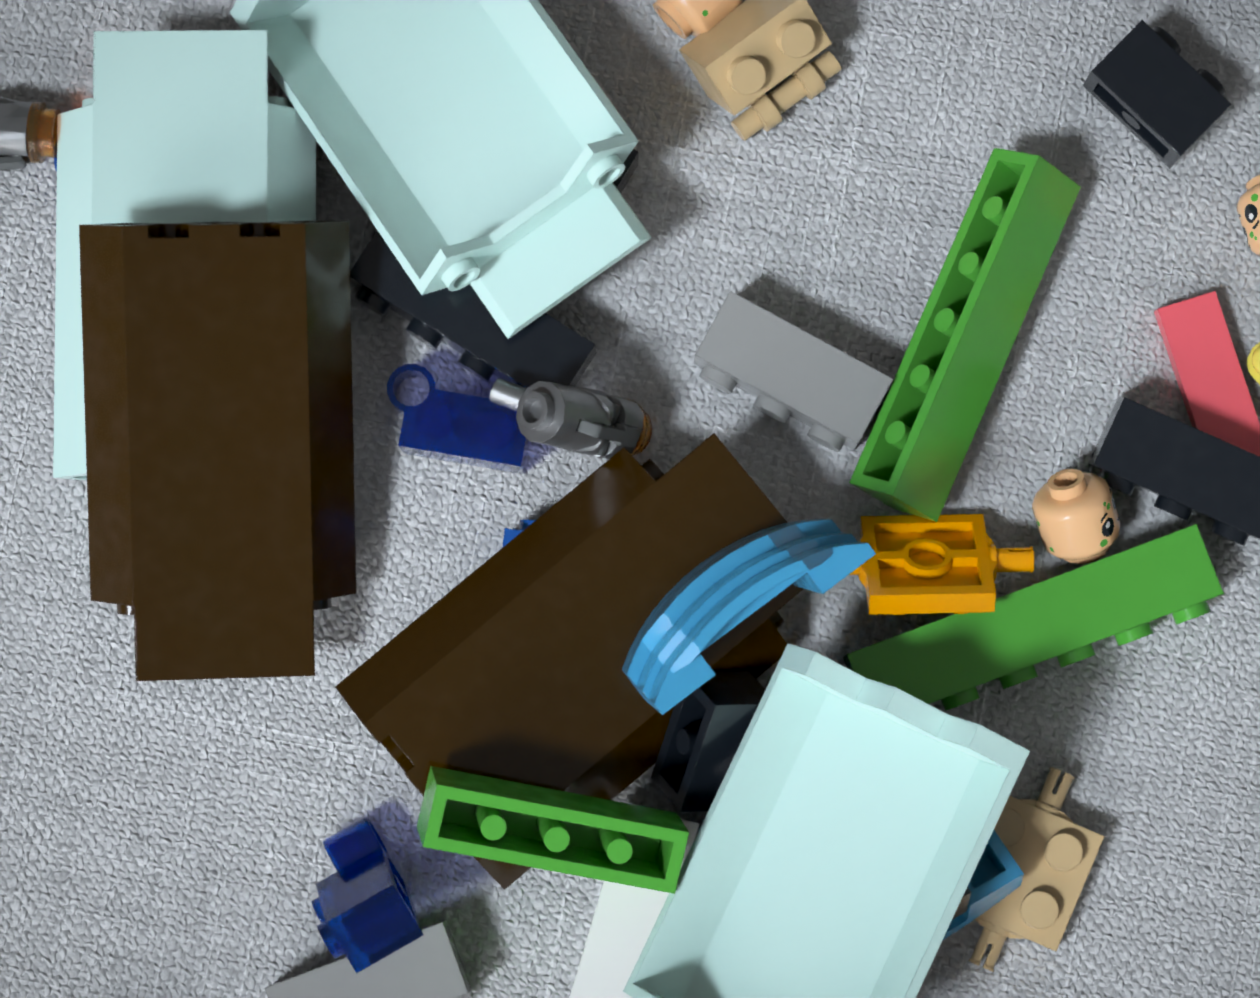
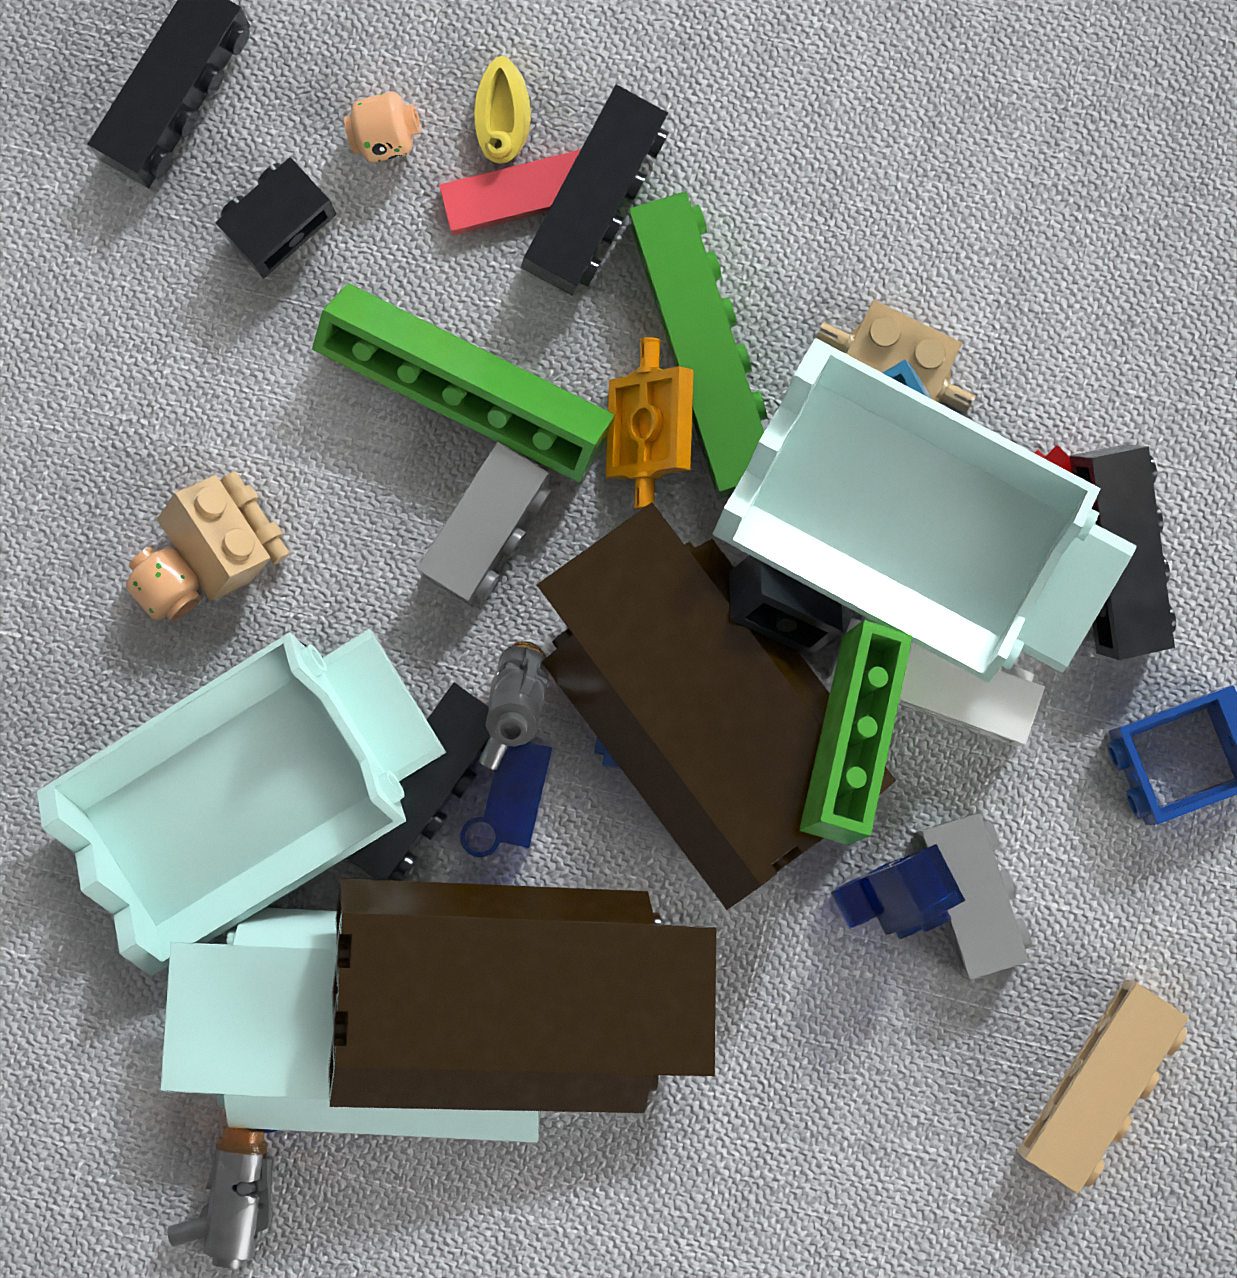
camera: 85 degrees left, 0 degrees up
(724, 592) = (675, 576): dark azure slope -> none
(1076, 516) = (616, 303): light nougat head -> none

